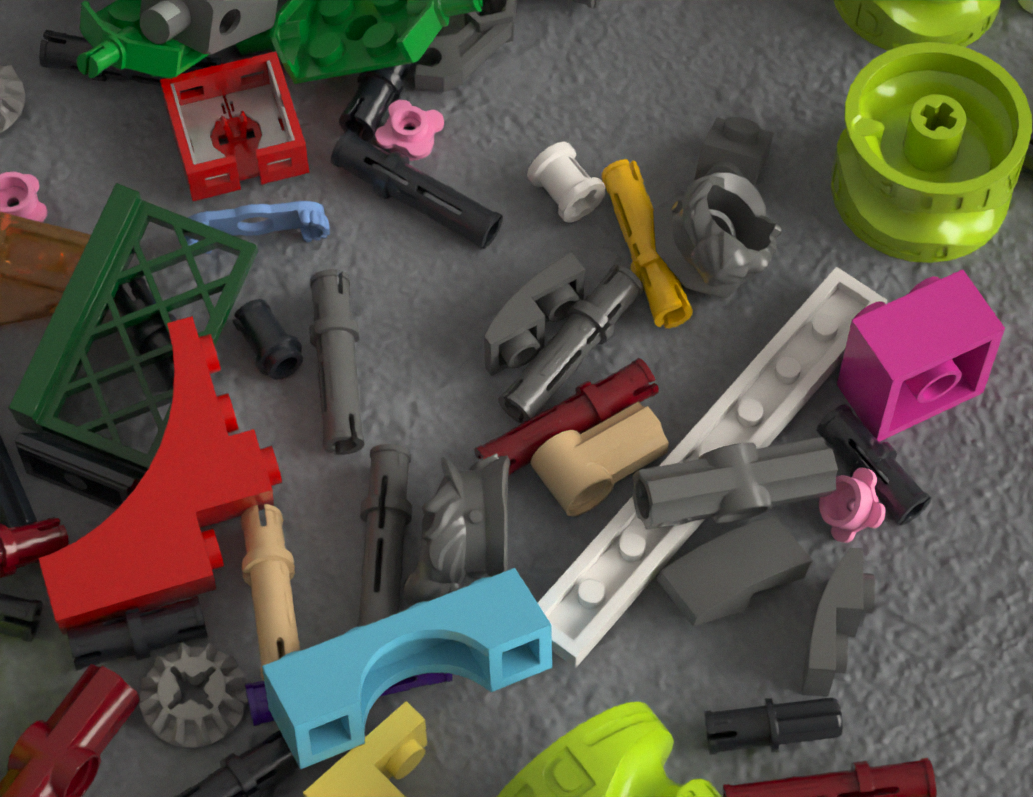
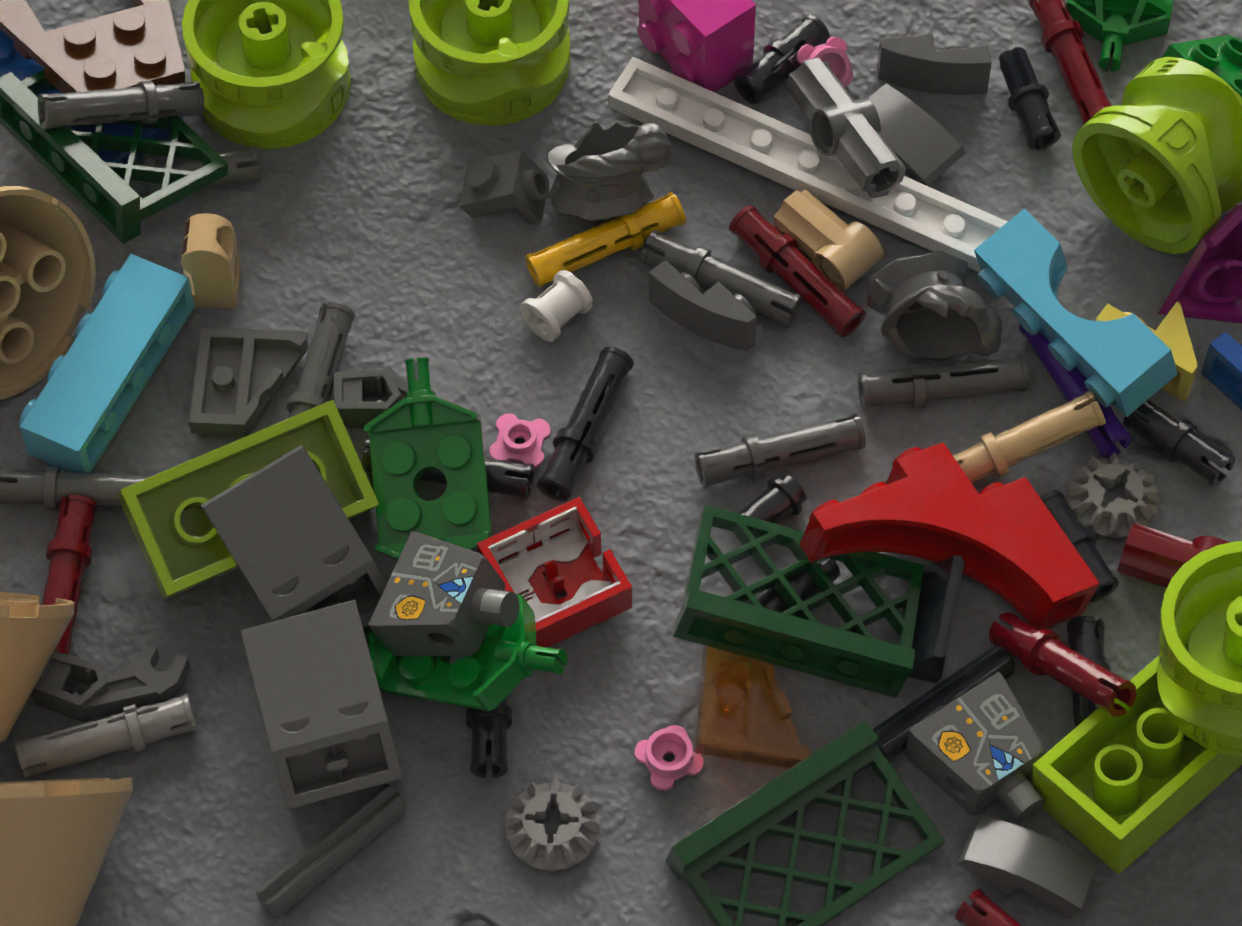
camera: 100 degrees left, 0 degrees up
(305, 215) = (668, 575): medium blue piece -> none

